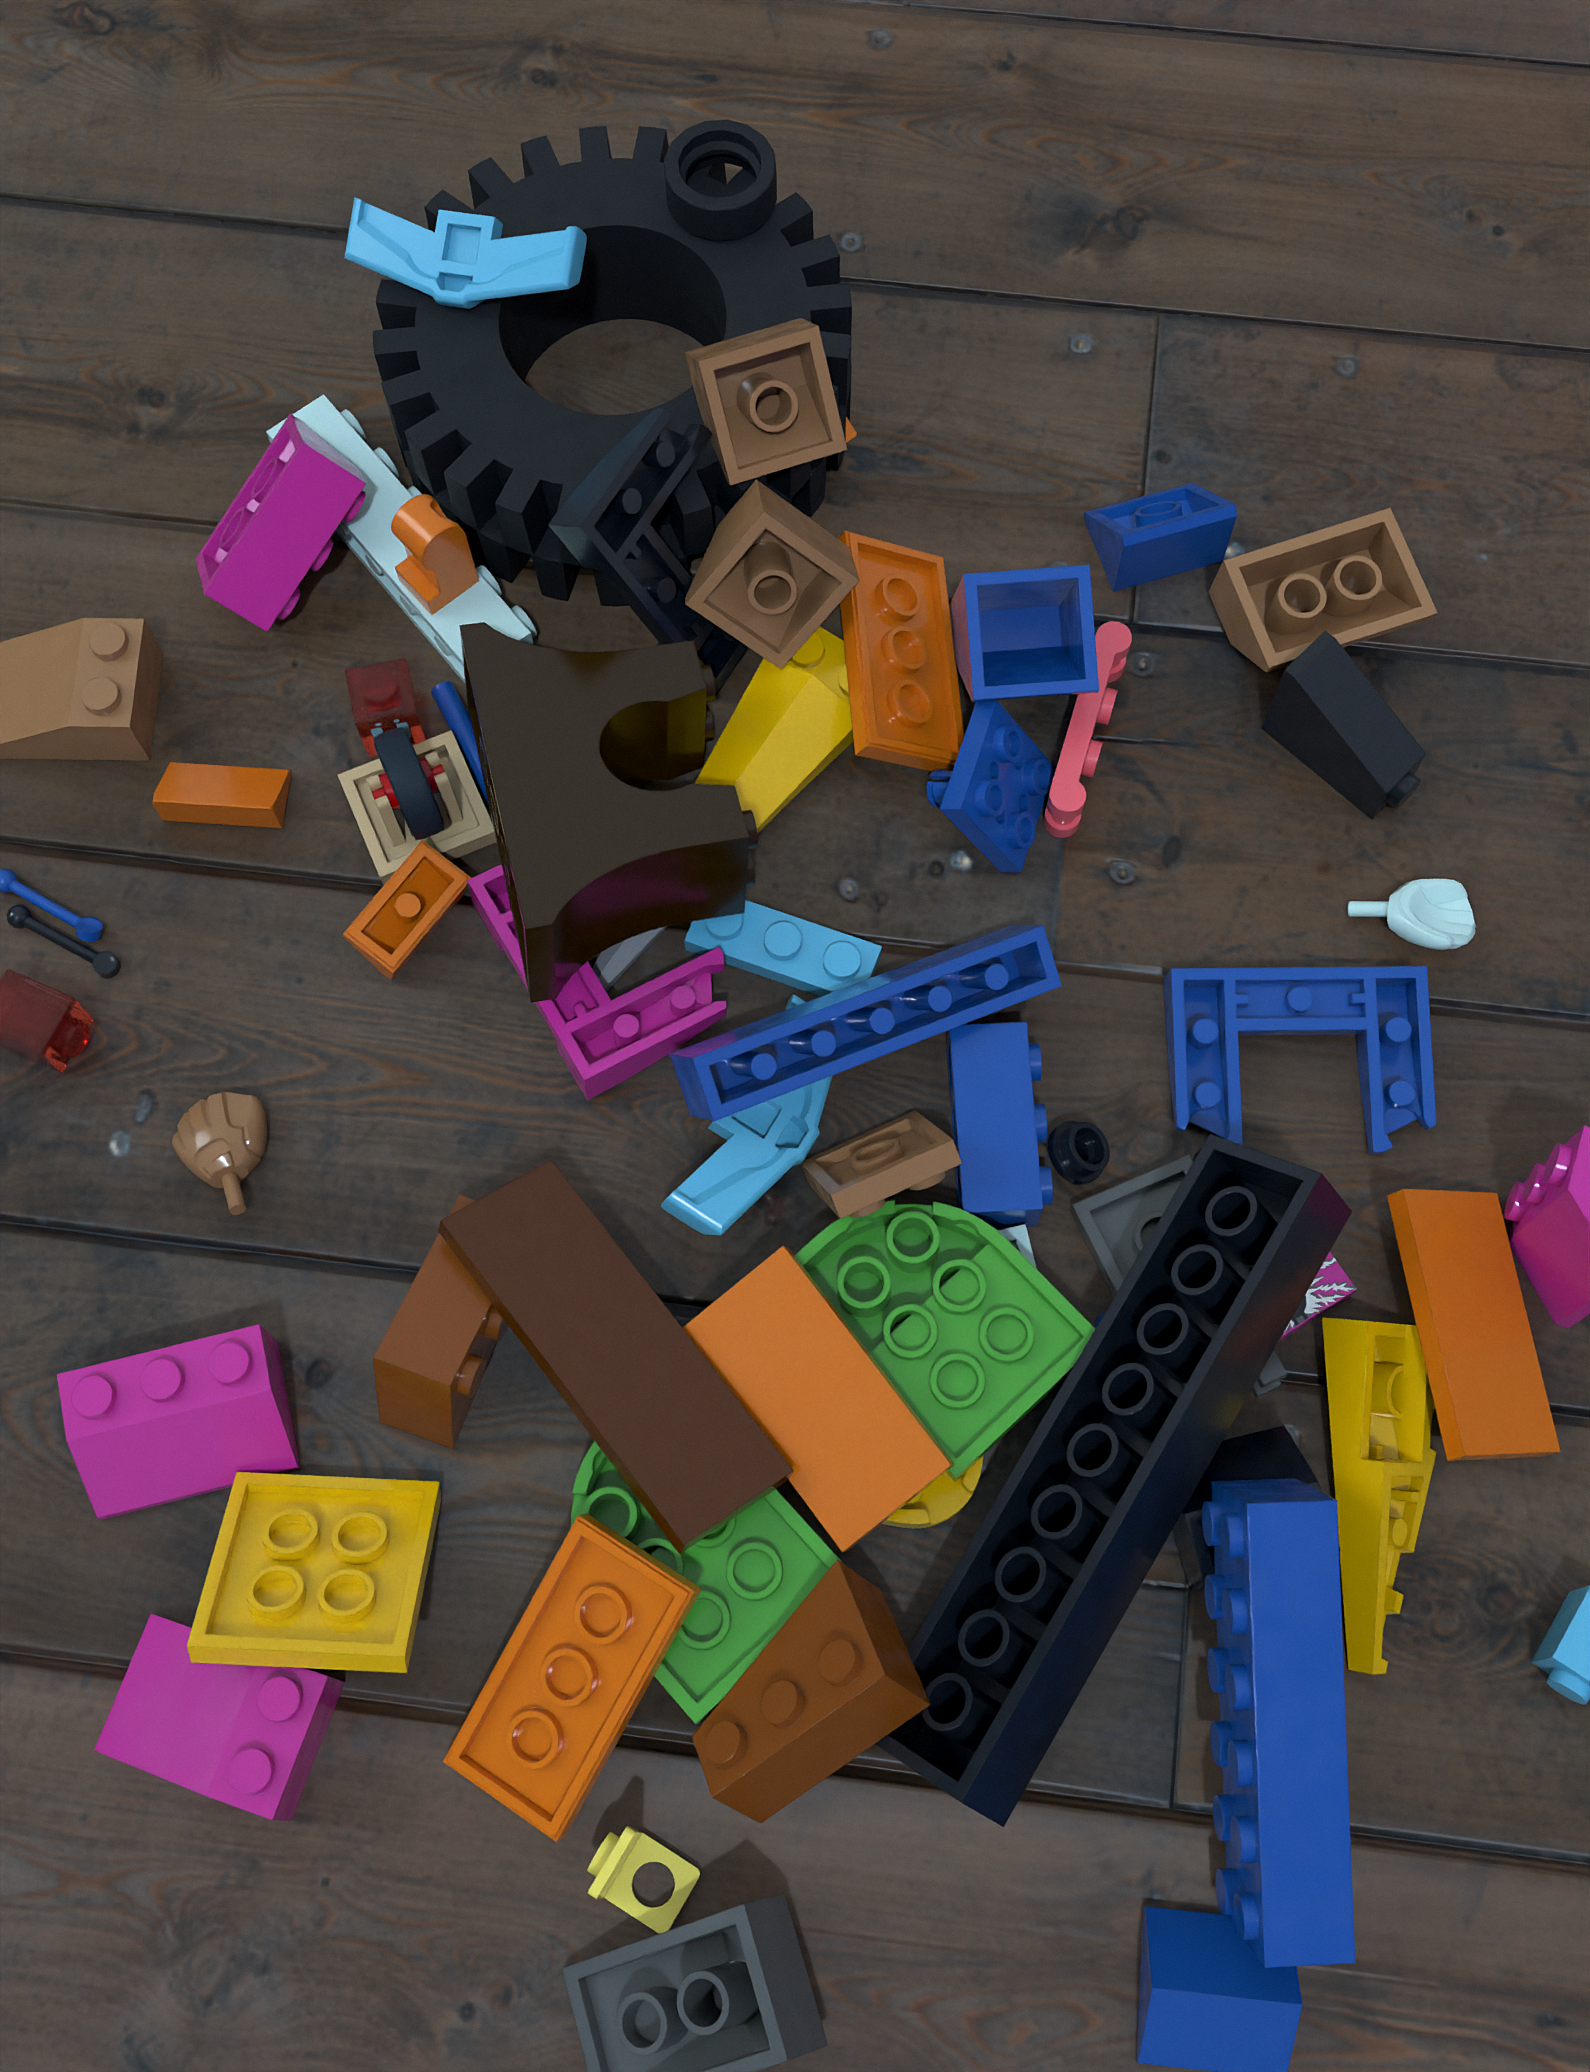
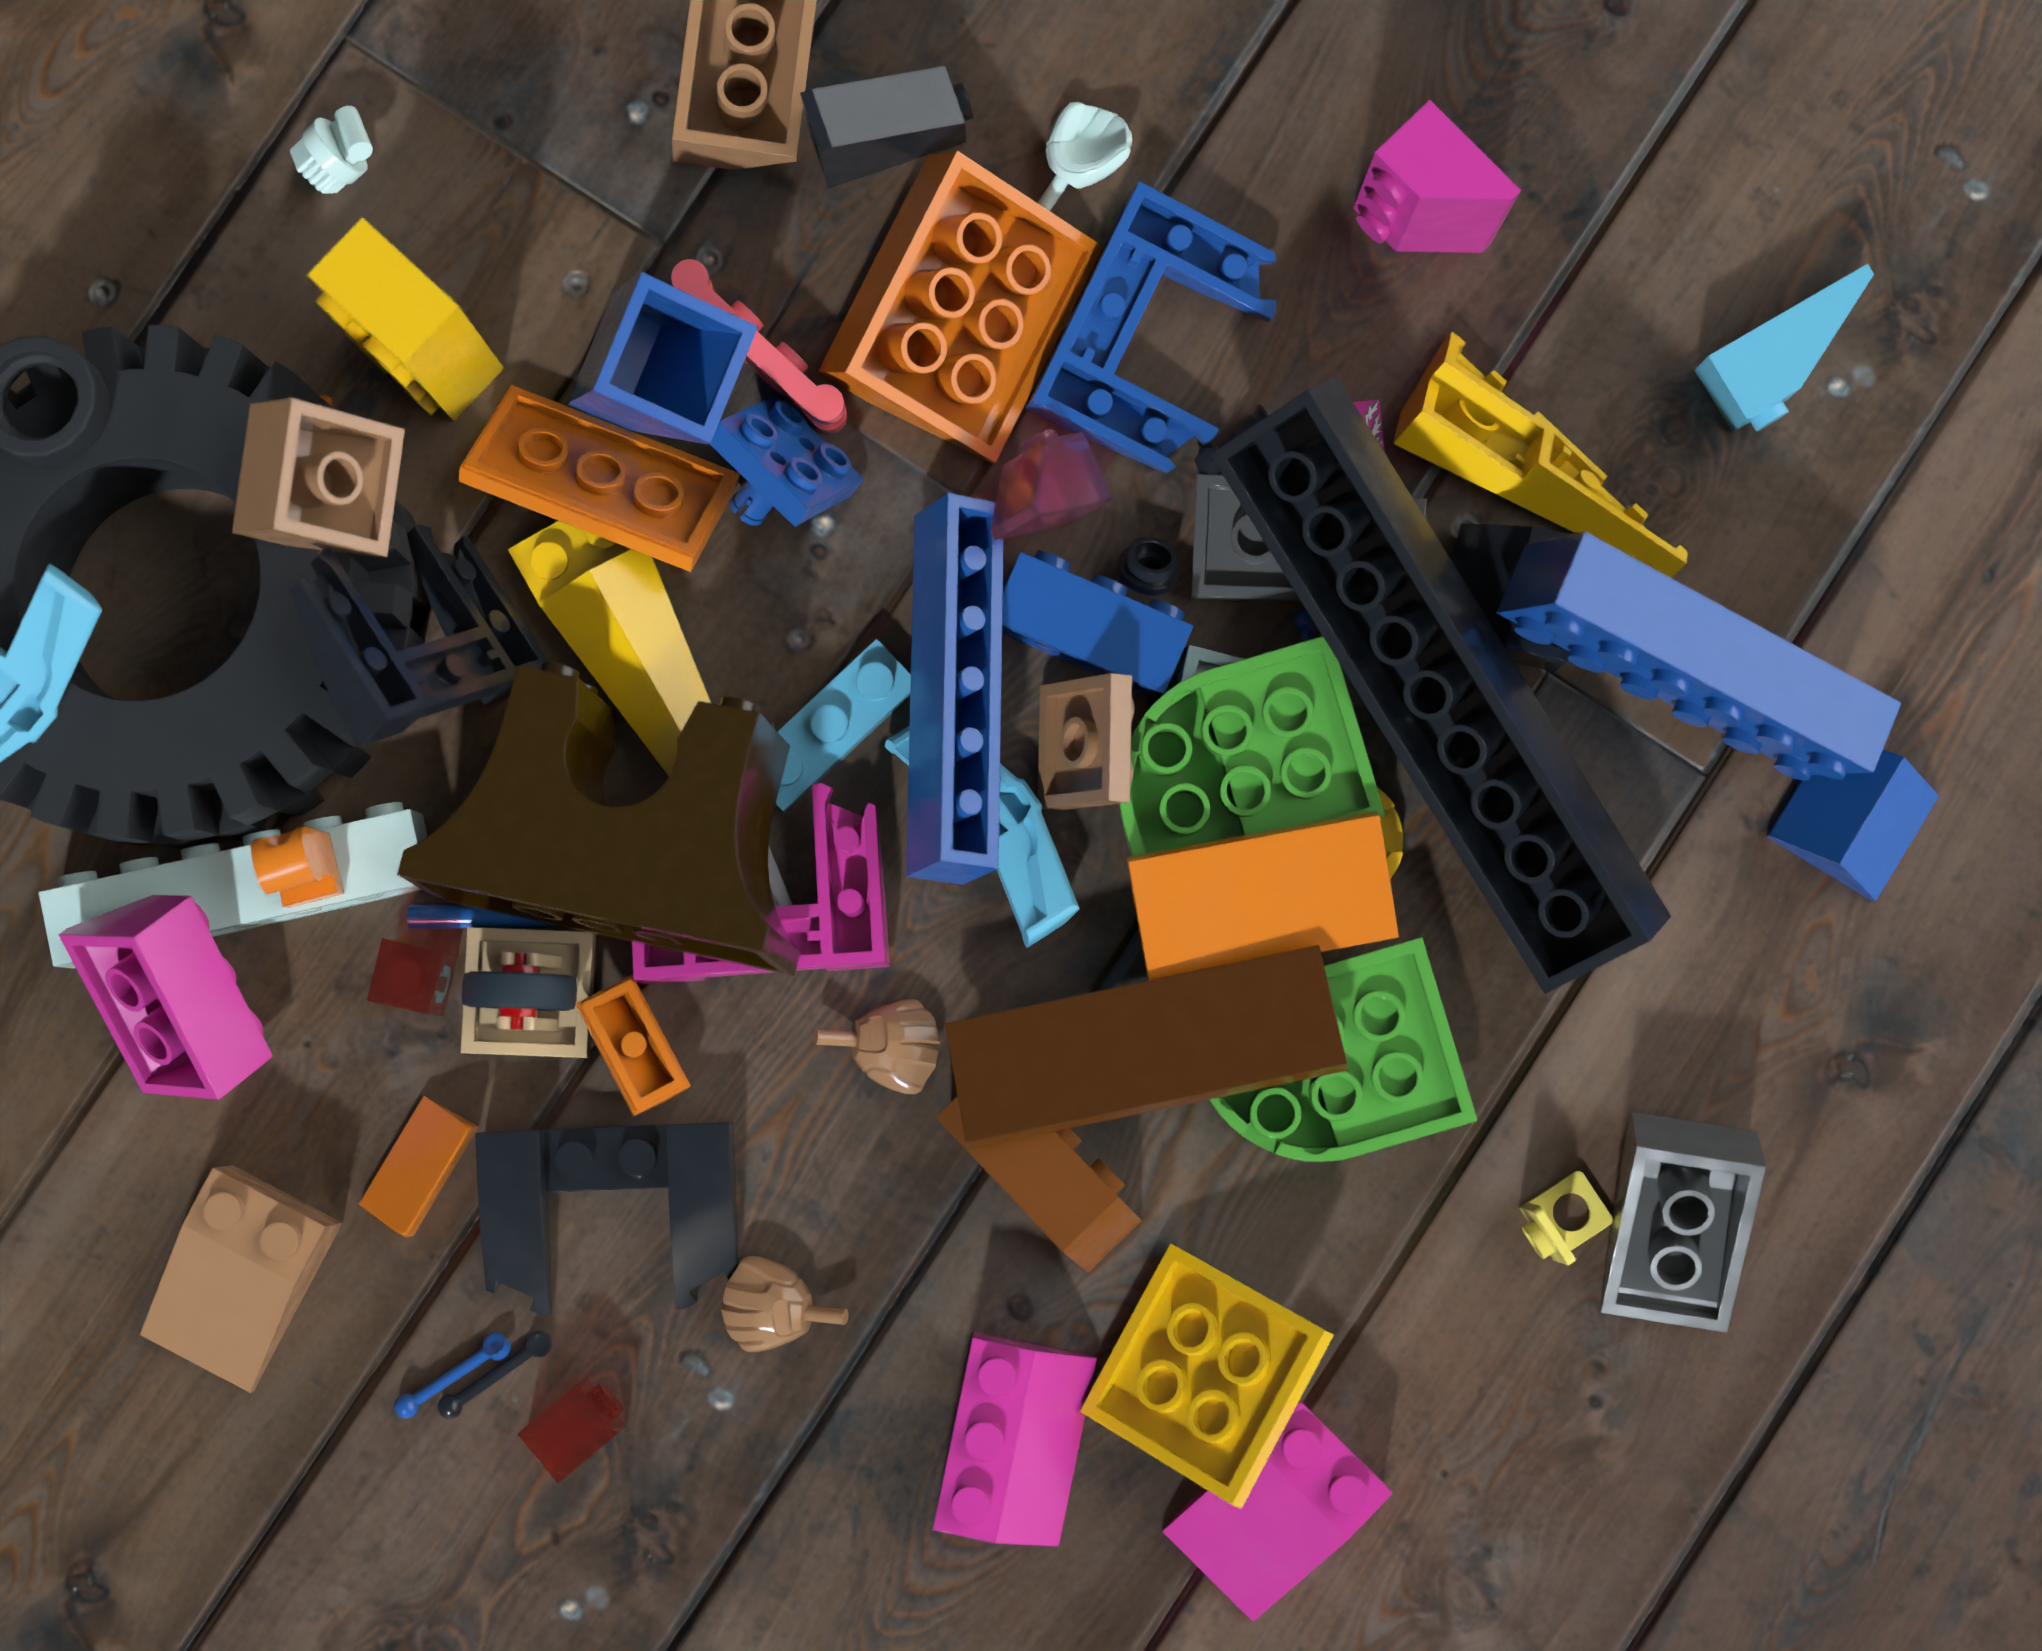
camera: 65 degrees left, 15 degrees up
(325, 1007) = (526, 1165): none -> black wedge
(514, 1133) = (891, 1044): none -> medium nougat piece
(571, 1676) = (1389, 1202): orange tile -> none
(771, 575) = (481, 559): medium nougat slope -> none
(810, 1699) = (1502, 1016): dark orange wedge -> none
(939, 419) = (404, 322): none -> yellow brick
(1058, 338) = (333, 151): none -> light aqua piece
(1099, 1021) = (1048, 486): none -> clear pink slope
(1161, 534) = (587, 171): blue slope -> none
(1222, 876) = (961, 306): none -> orange slope
(1472, 1325) = (1457, 324): orange tile -> none

